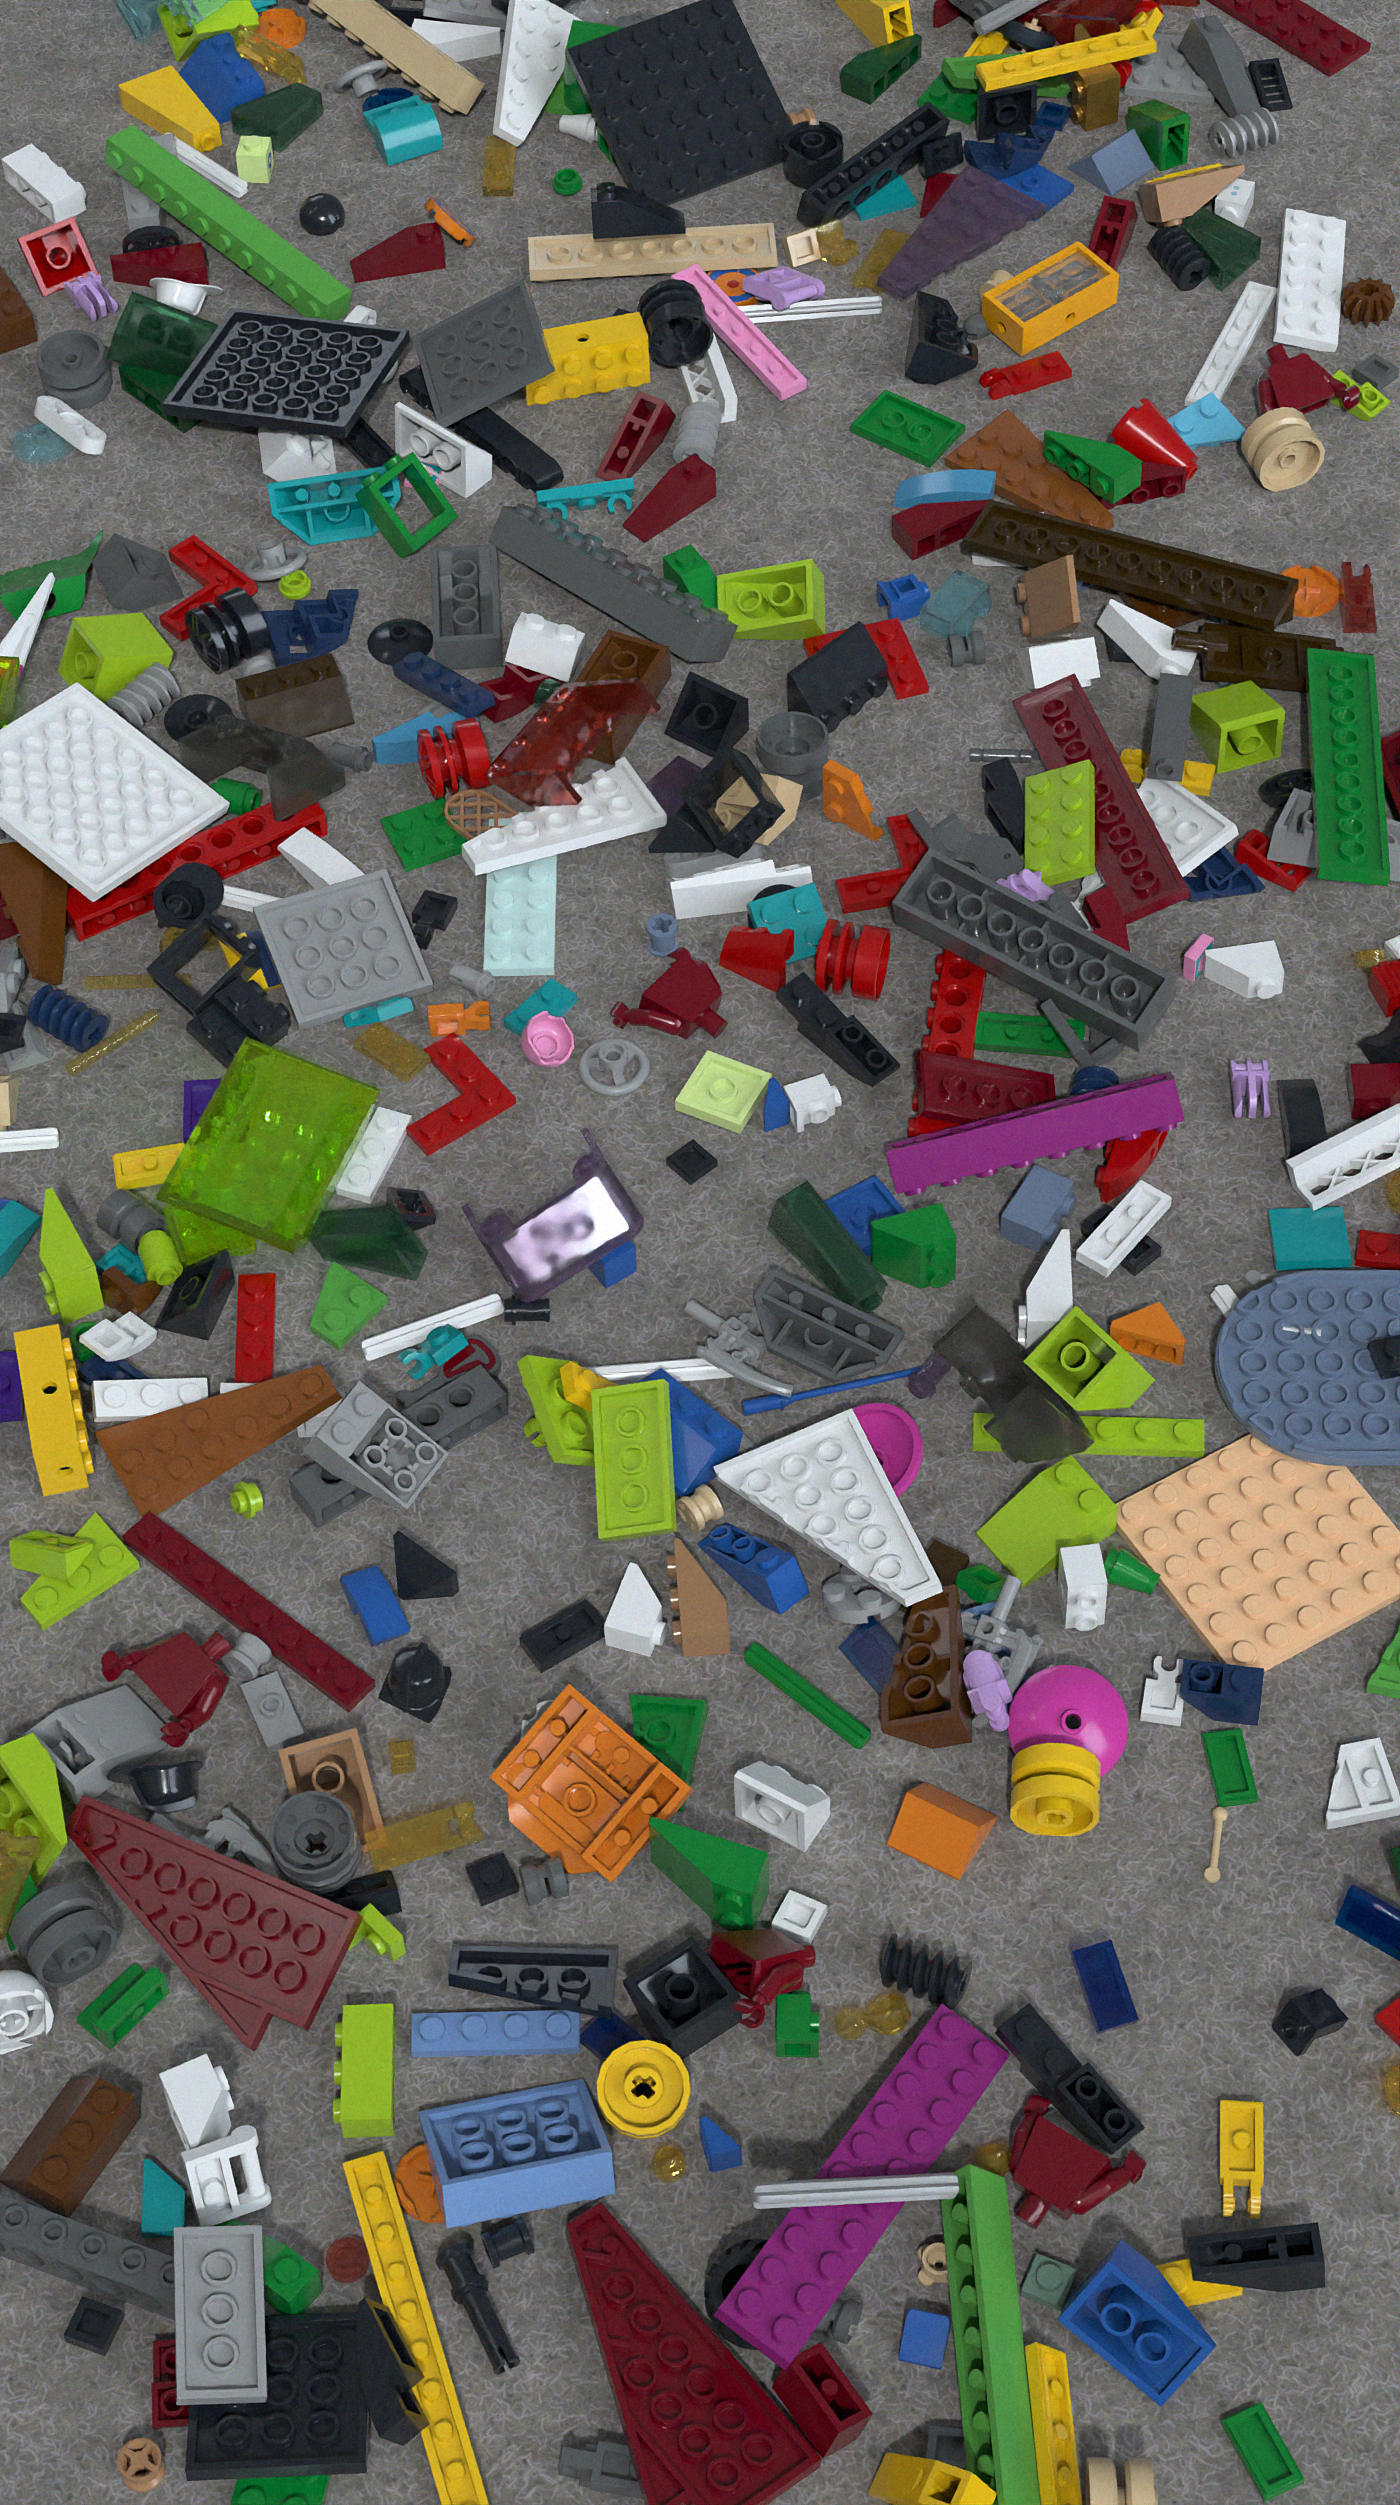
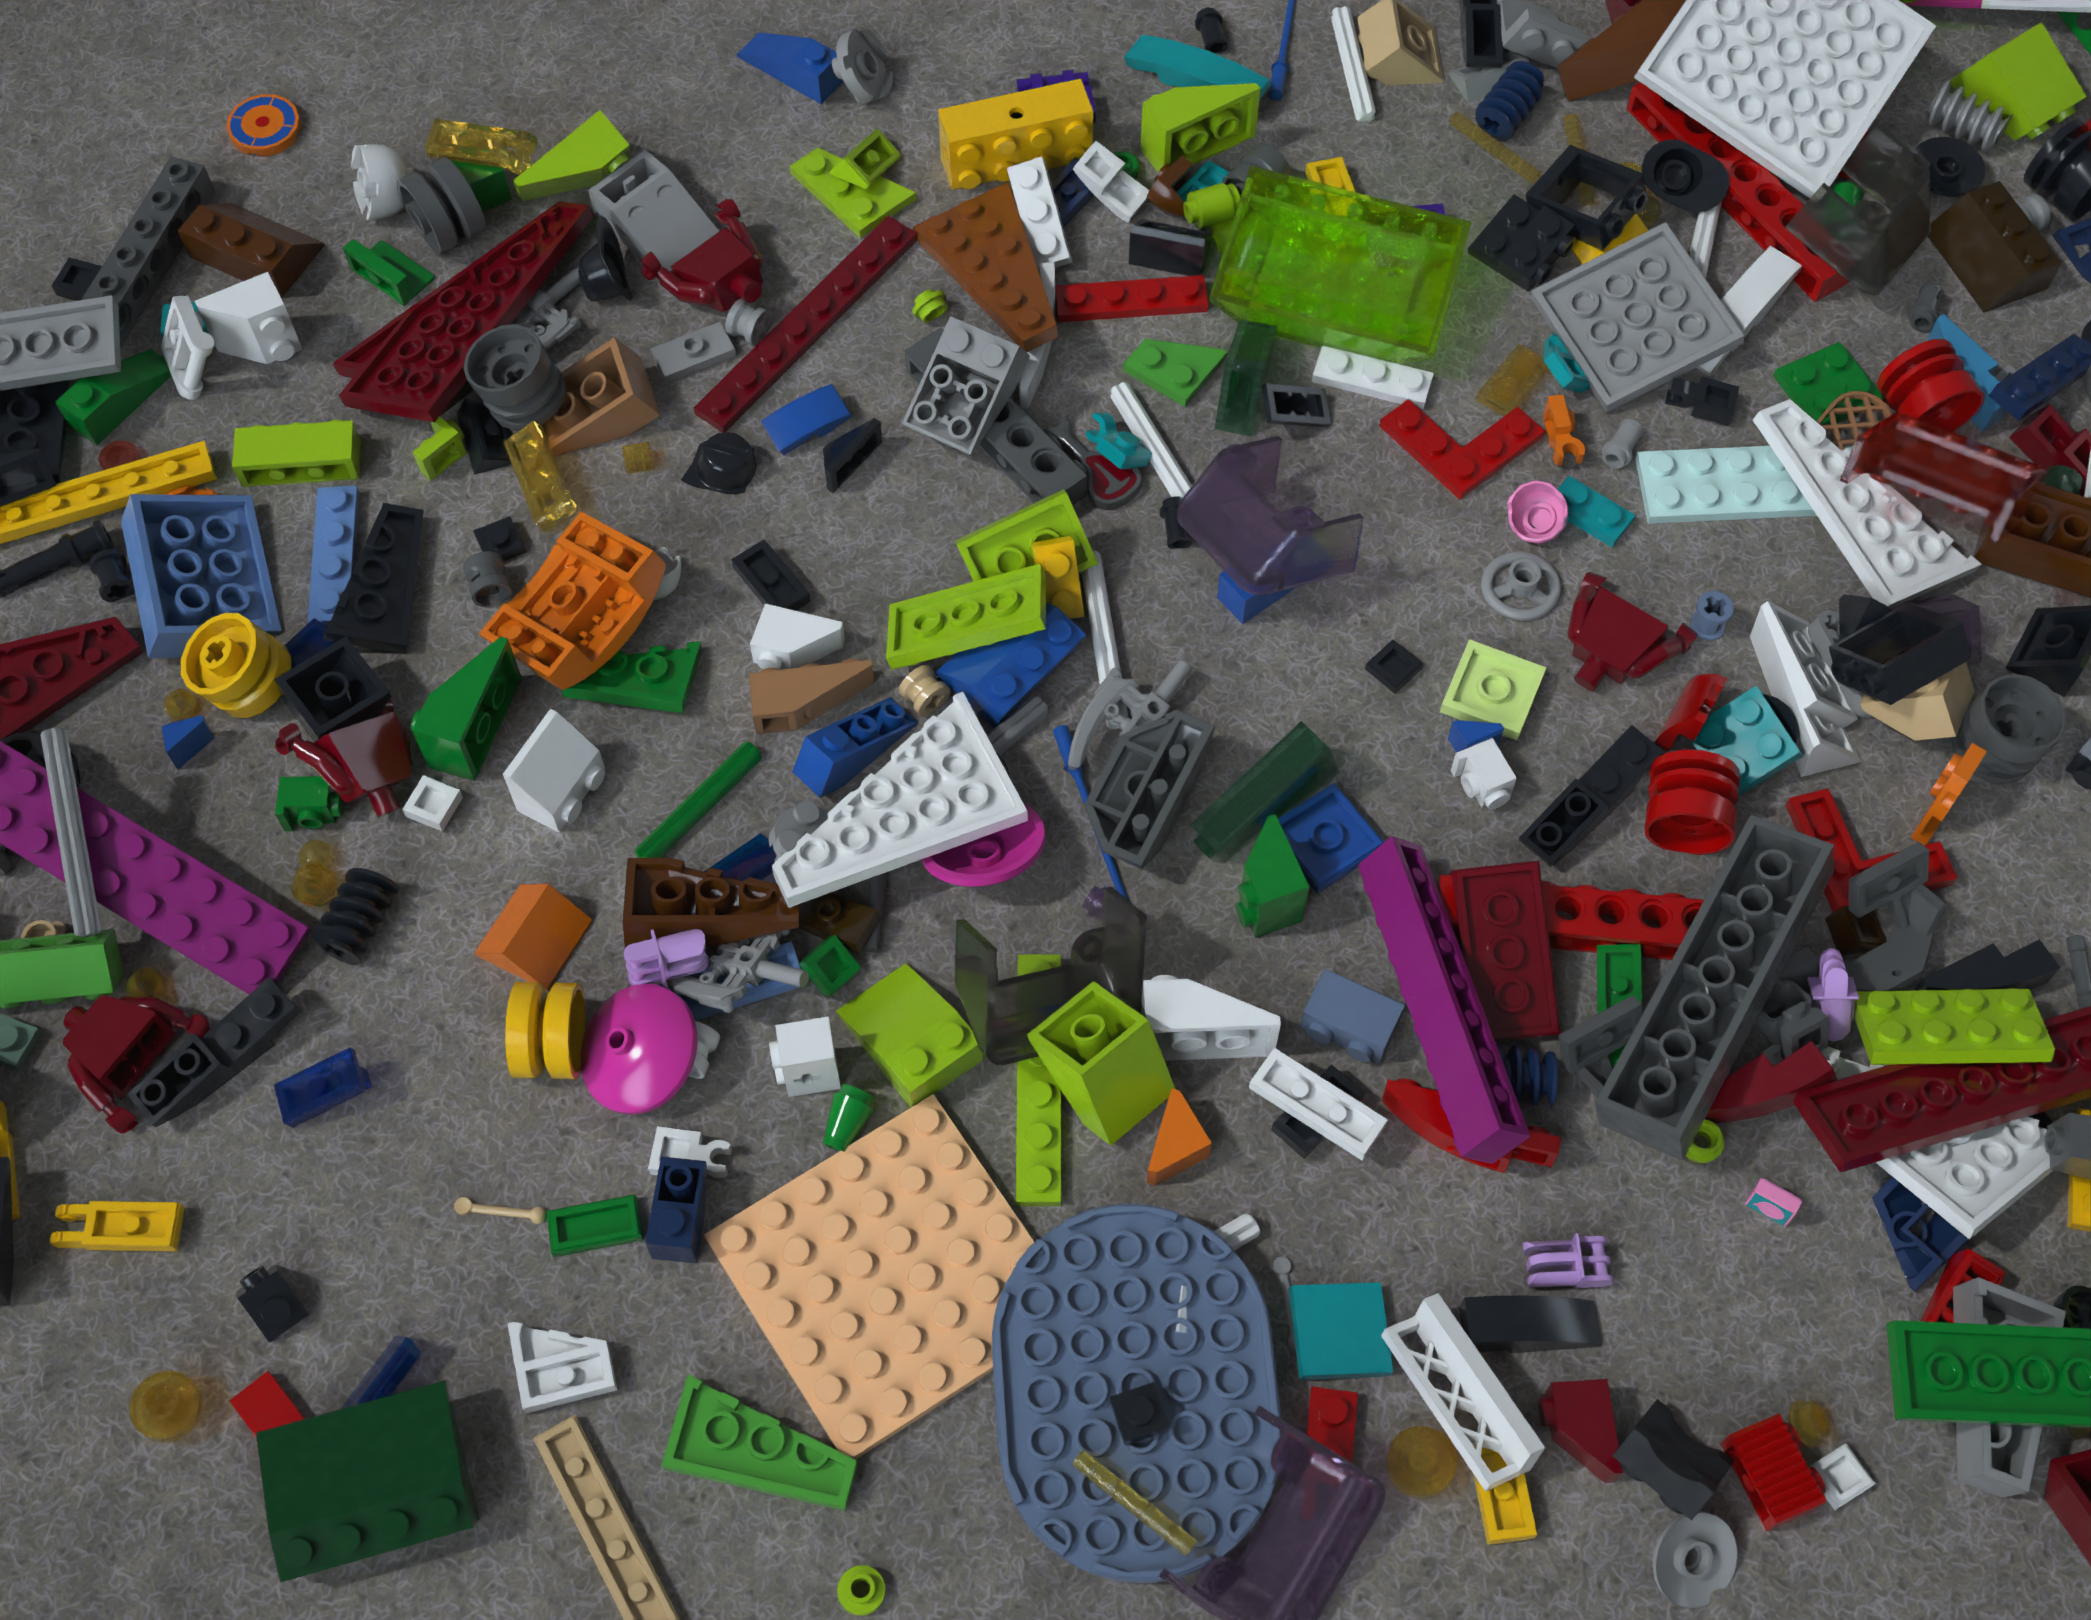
camera: 85 degrees right, 10 degrees up
(1246, 969) = (1764, 1265): white slope -> none

